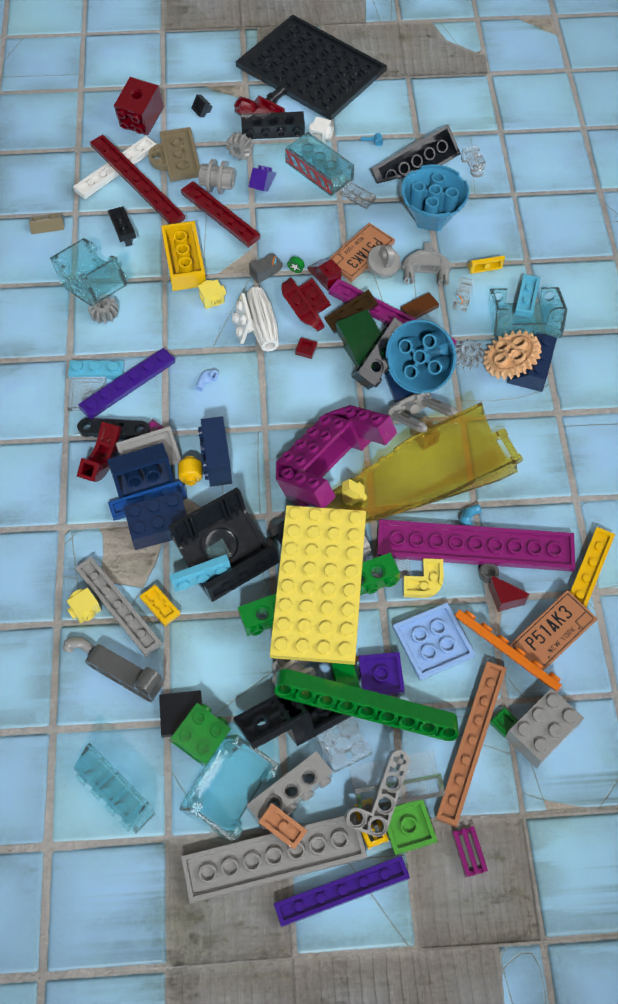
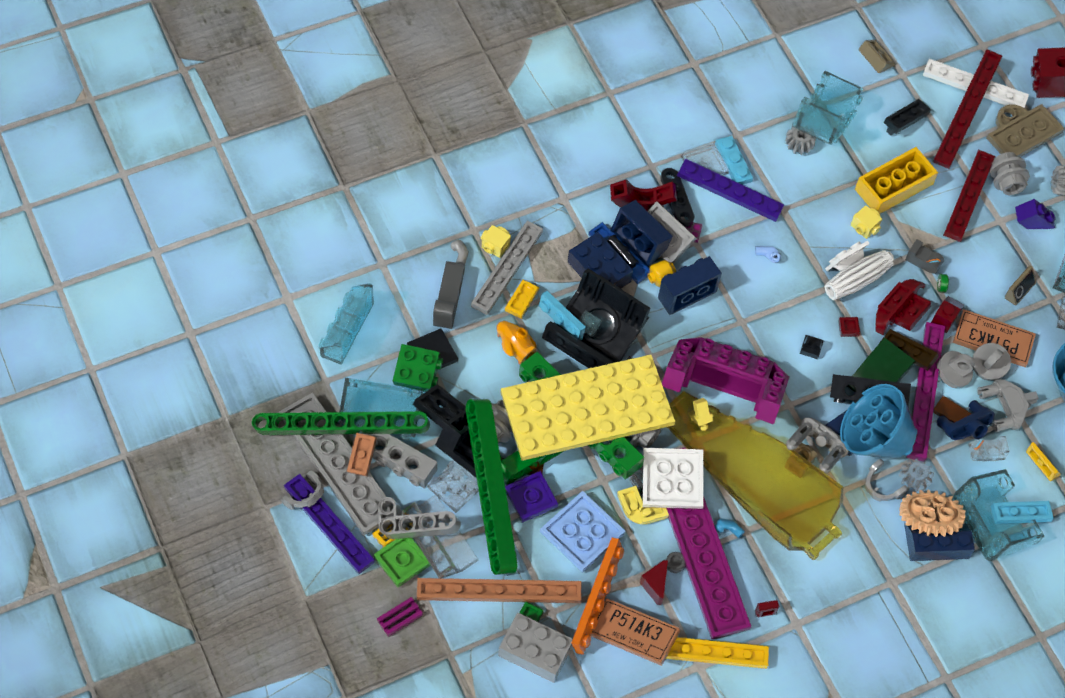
camera: 65 degrees right, 0 degrees up
(151, 493) = (623, 251): none -> black pin
(207, 627) = (516, 341): none -> light orange animal
(230, 844) = (332, 418): none -> green beam
(314, 383) = (811, 347): none -> black tile
(314, 901) = (313, 497): none -> light grey piece
(320, 215) = (1021, 286): none -> slope
(382, 285) = (956, 369): none -> light grey tile
(413, 539) = (673, 478): none -> white plate
(441, 295) = (972, 425): none -> dark blue connector
(466, 394) = (897, 494): none -> light grey piece
(559, 514) = (767, 608): none -> dark red tile

